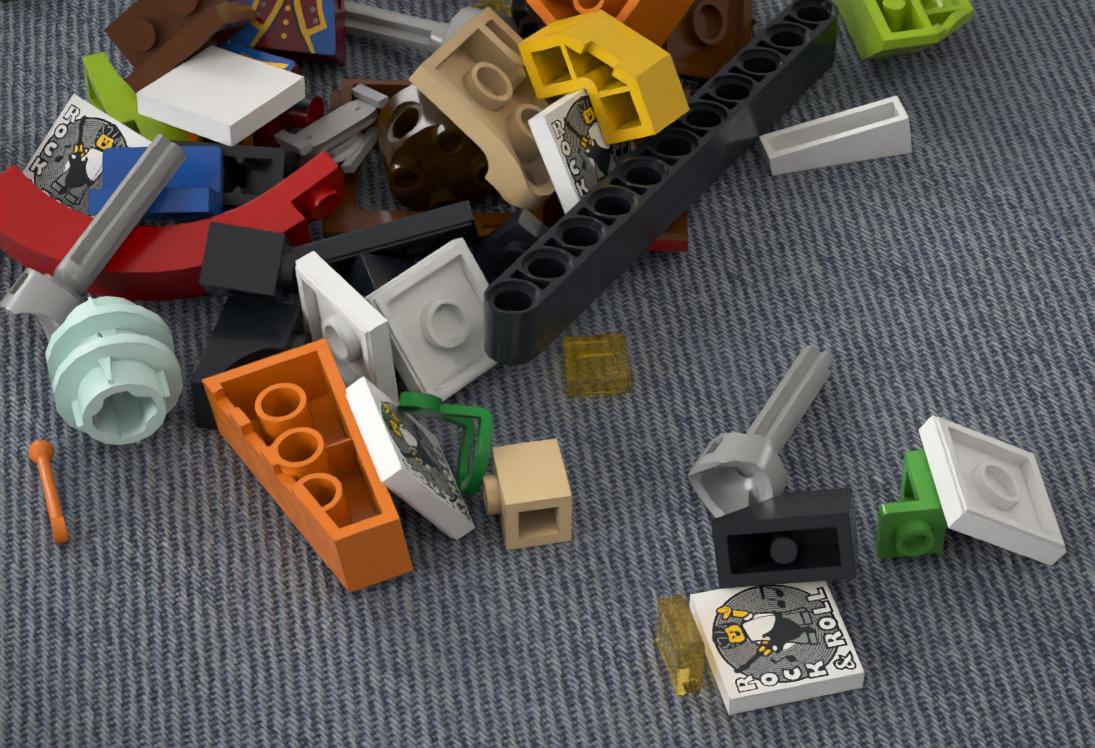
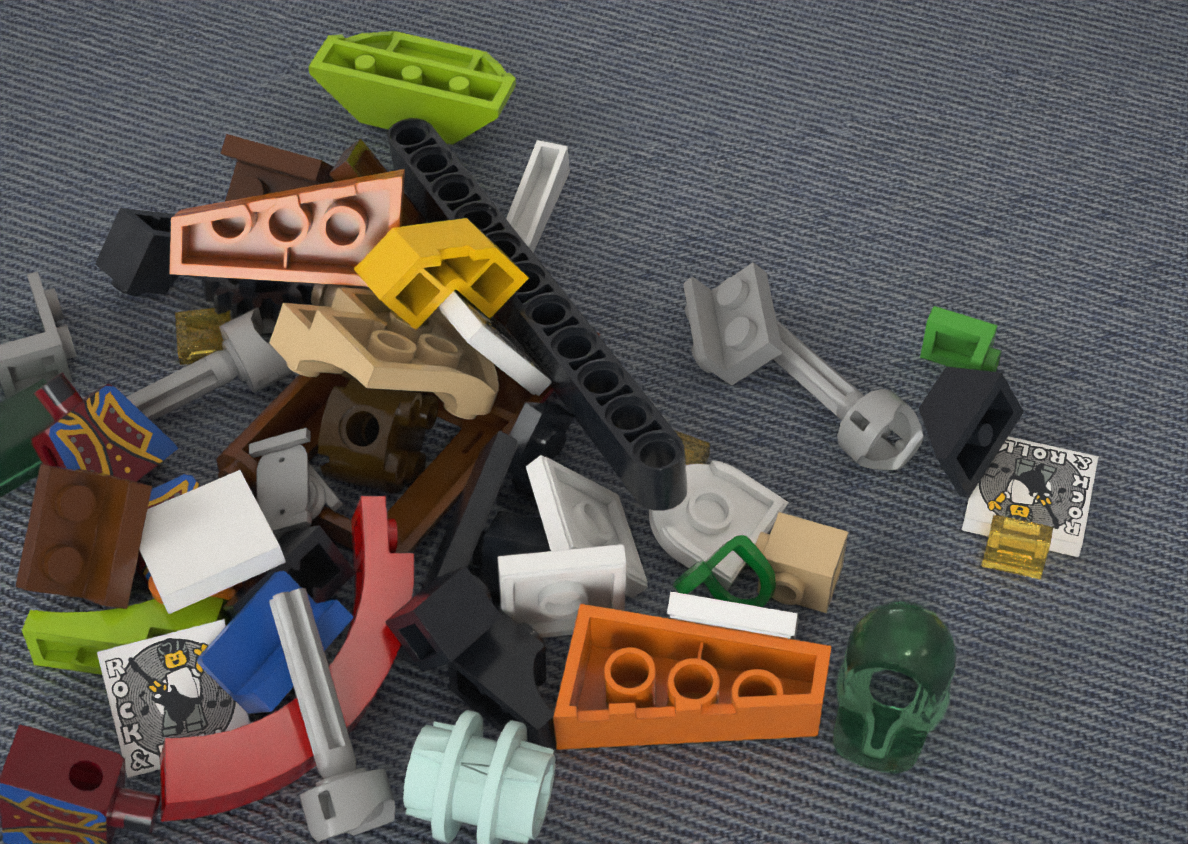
camera: 60 degrees left, 5 degrees up
(434, 614) = (902, 640): none -> clear green piece
(546, 402) = (716, 509): none -> white tile
(785, 322) = (733, 324): none -> light grey bracket
(991, 490) = (979, 298): white tile -> none

